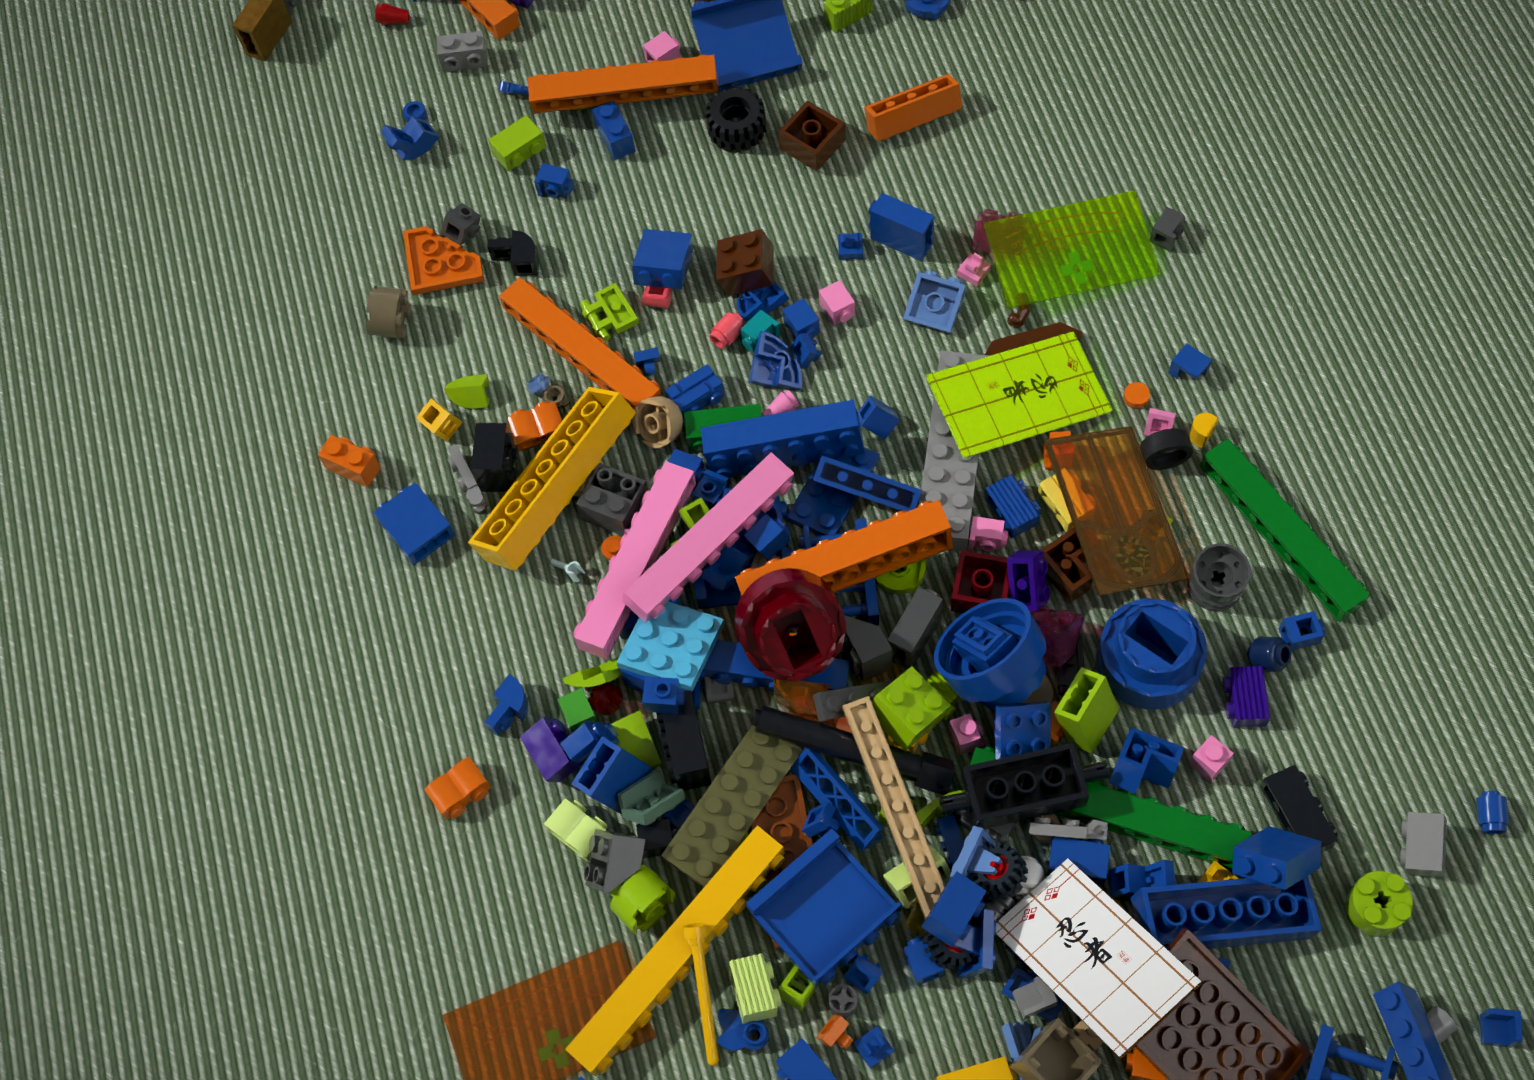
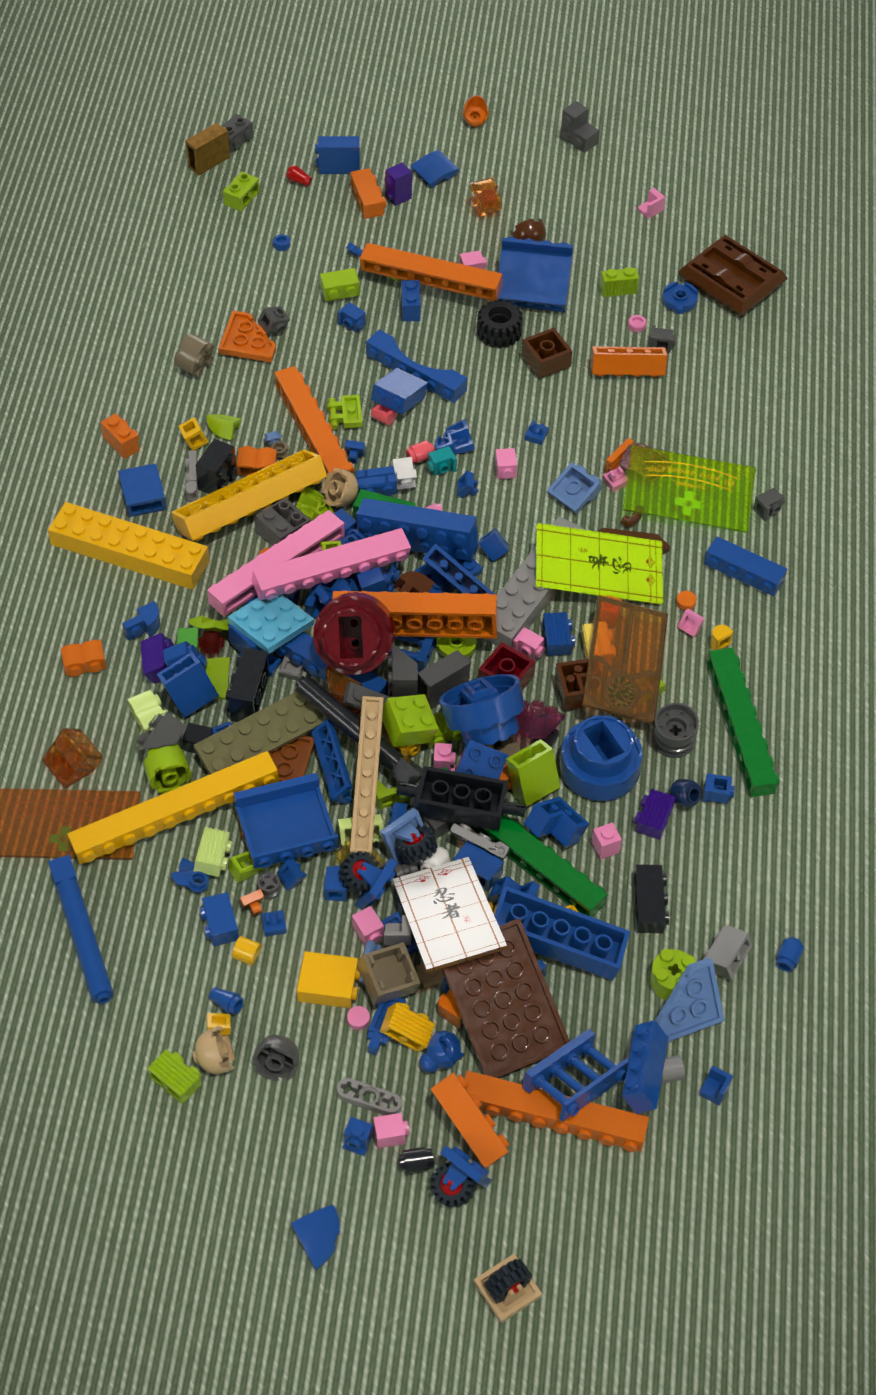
camera: 15 degrees right, 10 degrees down
(331, 63) = (241, 191): none -> lime brick
(412, 140) = (269, 258): blue brick -> none
(436, 608) = (129, 545): none -> yellow brick
(462, 51) = (334, 215): light grey brick -> none
(512, 933) = (72, 757): none -> clear orange slope
(519, 250) = (303, 351): black brick -> none
(571, 569) = (232, 558): light aqua hand -> none
(635, 457) = (312, 503): none -> lime brick
(649, 799) = (205, 709): sand green bracket -> none
(662, 695) = (245, 644): blue brick -> none
(696, 935) = (188, 798): yellow piece -> none
(708, 224) = (445, 383): none -> blue arch
(724, 365) = (404, 472): none -> white brick
(745, 262) = (454, 413): reddish brown brick -> none
(773, 364) = (440, 485): blue brick -> none
(801, 319) = (475, 463): blue brick -> none
(817, 521) = (413, 583): none -> reddish brown brick
(820, 820) = (314, 767): blue tile -> none
(893, 52) = (637, 323): none -> bright pink tile
(901, 226) = (576, 431): blue brick -> none
(934, 62) = (662, 338): none -> dark grey brick
(954, 909) = (369, 847): blue brick -> none
(964, 237) = (615, 458): none -> orange tile
(991, 1002) = (368, 925): none -> bright pink brick
(1028, 578) = (538, 678): dark purple brick -> none
(1166, 448) = (681, 646): black tyre -> none
(1183, 322) = (745, 566): none -> blue brick
(1189, 361) = (735, 592): blue panel -> none
(1276, 857) = (613, 911): blue brick -> none
(1425, 934) = (693, 1002): none -> medium blue plate

